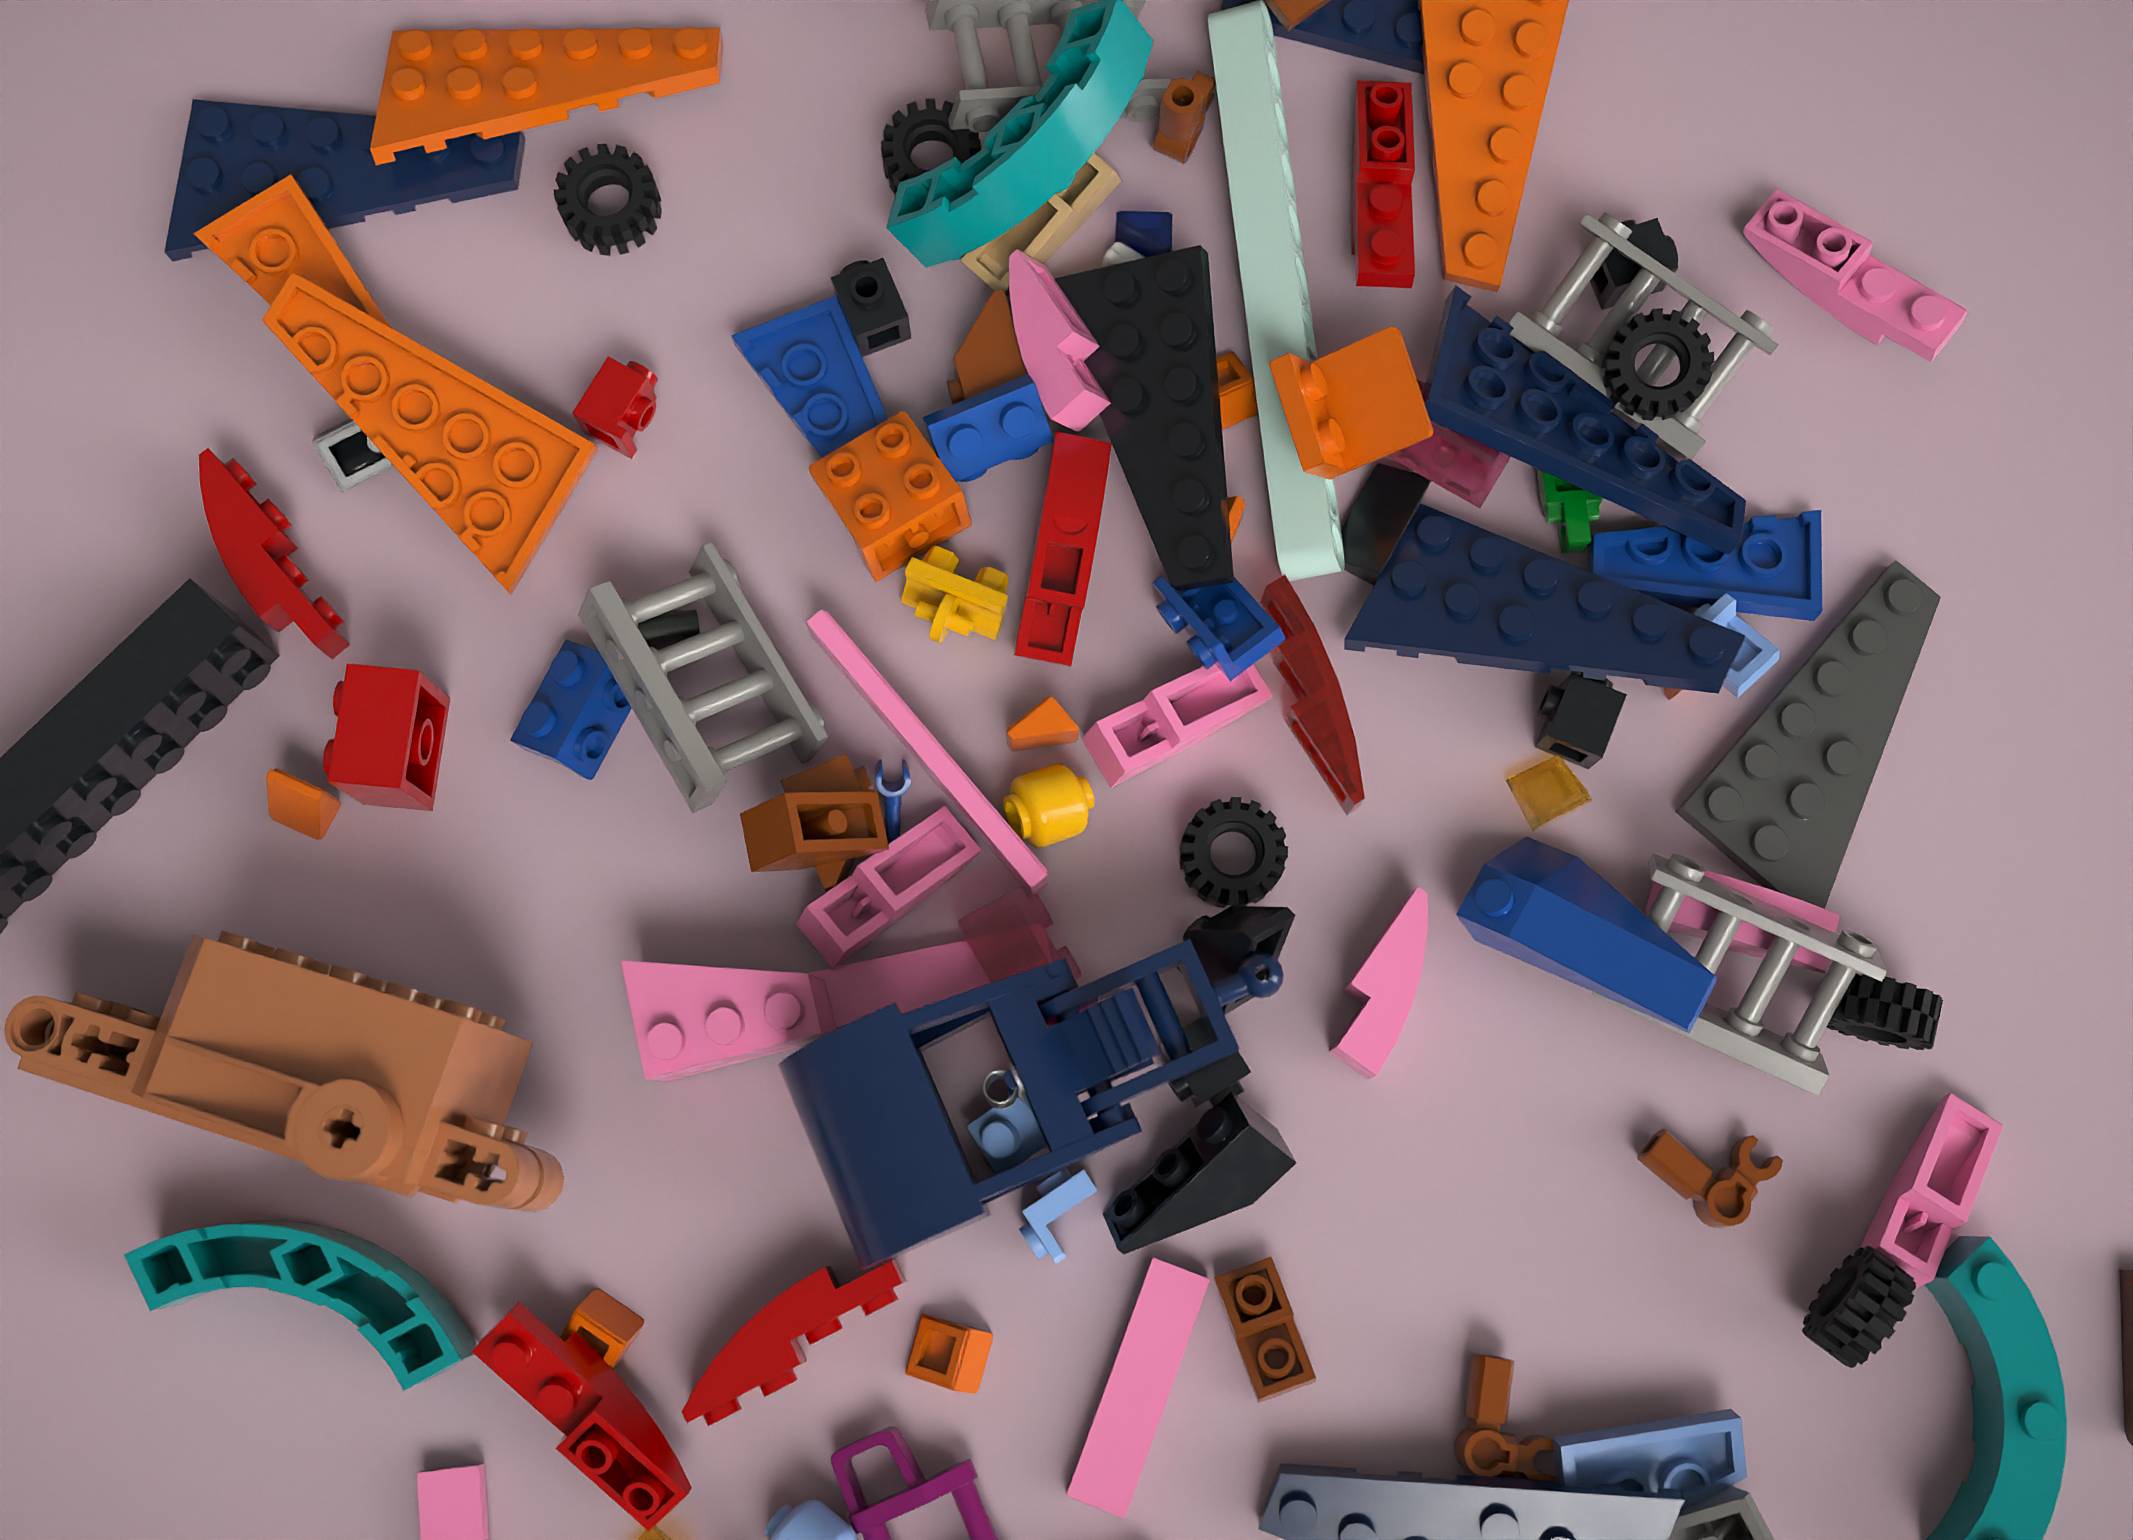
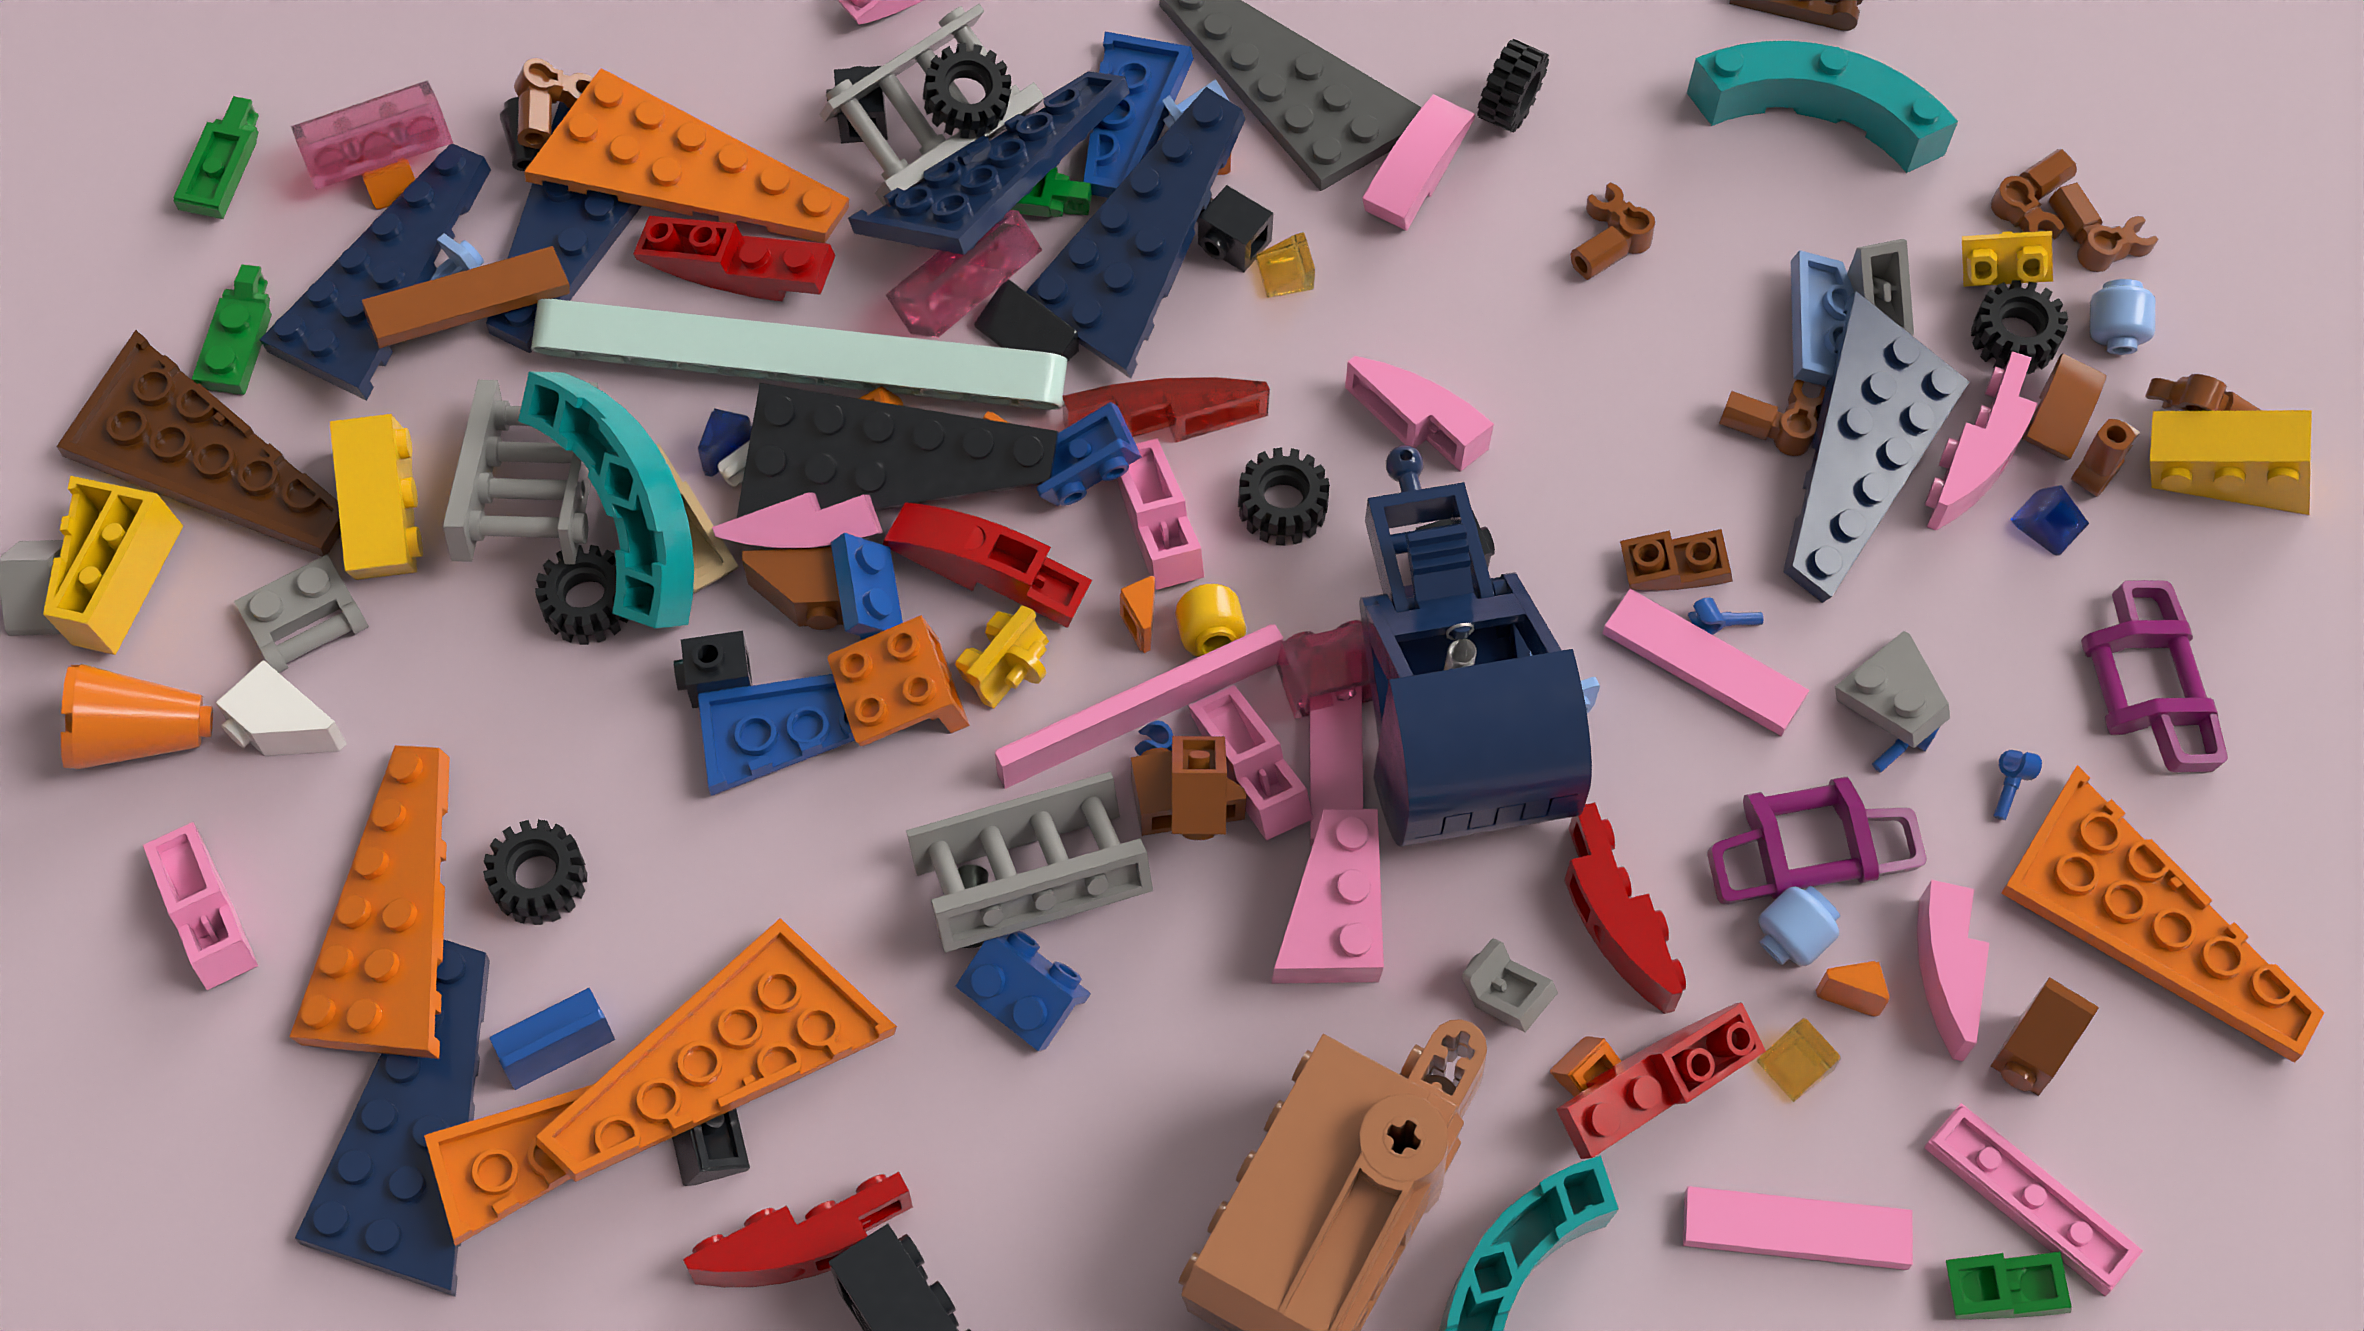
camera: 75 degrees left, 15 degrees down
(300, 804) = (1052, 1247): orange slope -> none
(387, 737) = (1017, 1137): red brick -> none
(438, 267) = (551, 1038): none -> blue panel
(617, 405) = (746, 896): red brick -> none
(670, 1223) = (1506, 987): none -> light grey bracket
(949, 1354) = (1654, 800): orange slope -> none
(1183, 115) = (624, 380): dark orange bar -> none
(1196, 1380) = (1712, 621): none -> blue hand
(1207, 1174) = (1549, 562): black slope -> none
(1234, 935) = (1359, 479): black slope -> none
(1352, 404) = (940, 293): orange bracket -> none
(1580, 928) = (1405, 263): blue wedge -> none
(1740, 1030) = (1508, 180): light grey fence -> none
(1859, 1306) = (1731, 154): black tyre -> none
(1934, 1188) = (1655, 97): bright pink slope -> none

